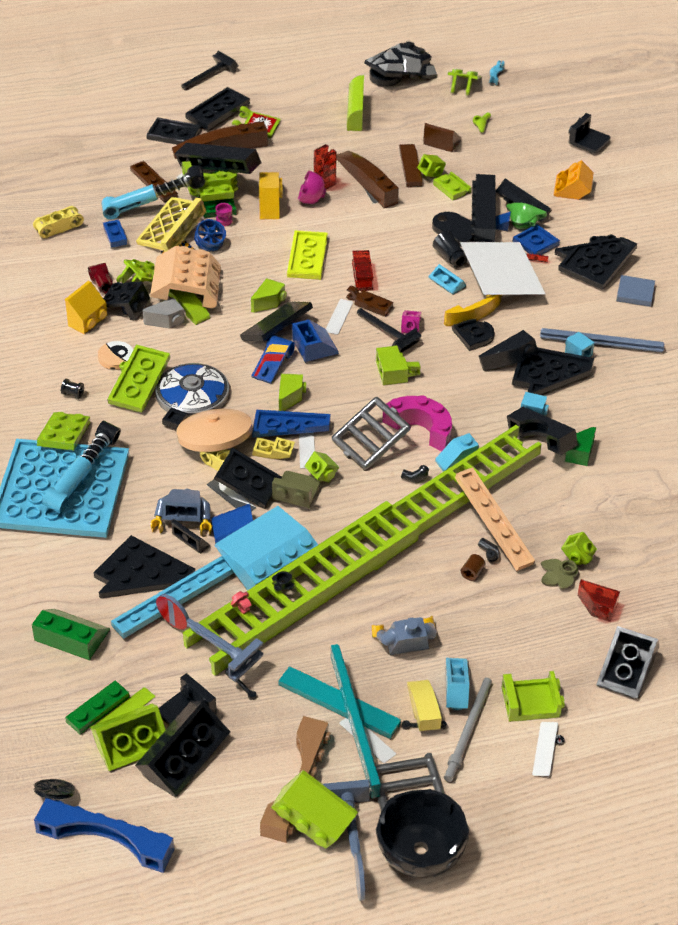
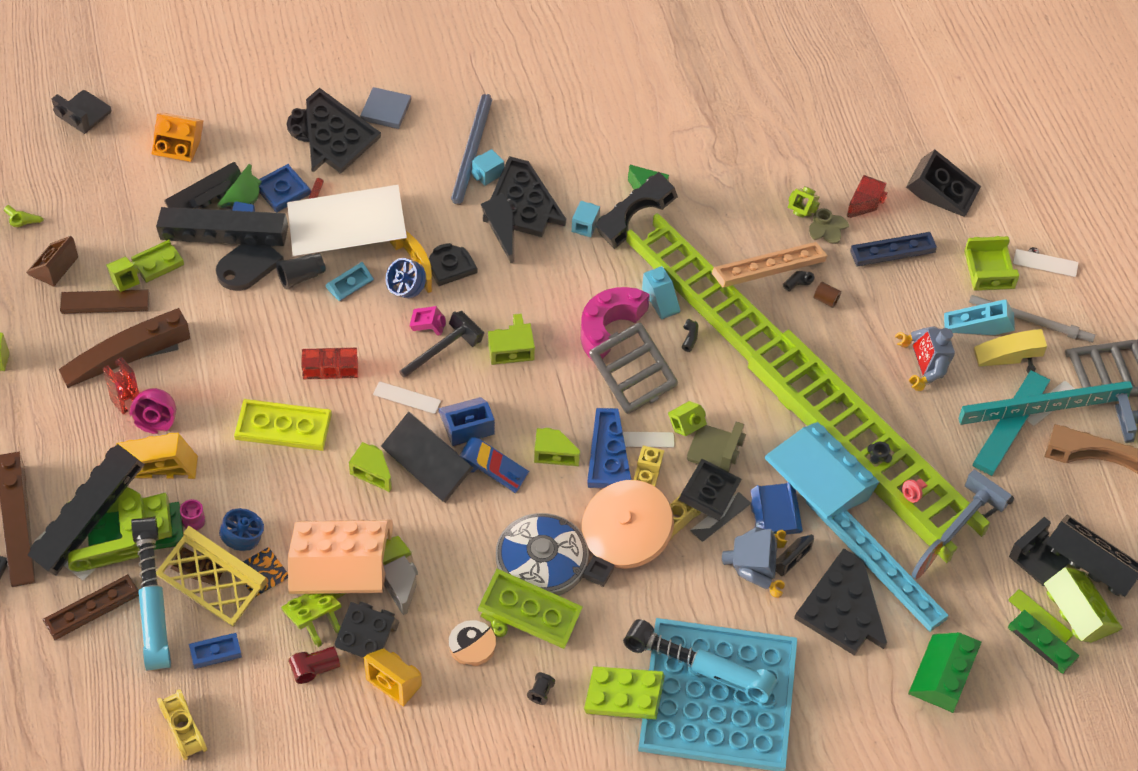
camera: 90 degrees left, 10 degrees up
(369, 301) = (386, 361): reddish brown plate -> none
(447, 300) = (405, 278): none -> blue wheel
(538, 620) = (893, 249): none -> dark blue plate

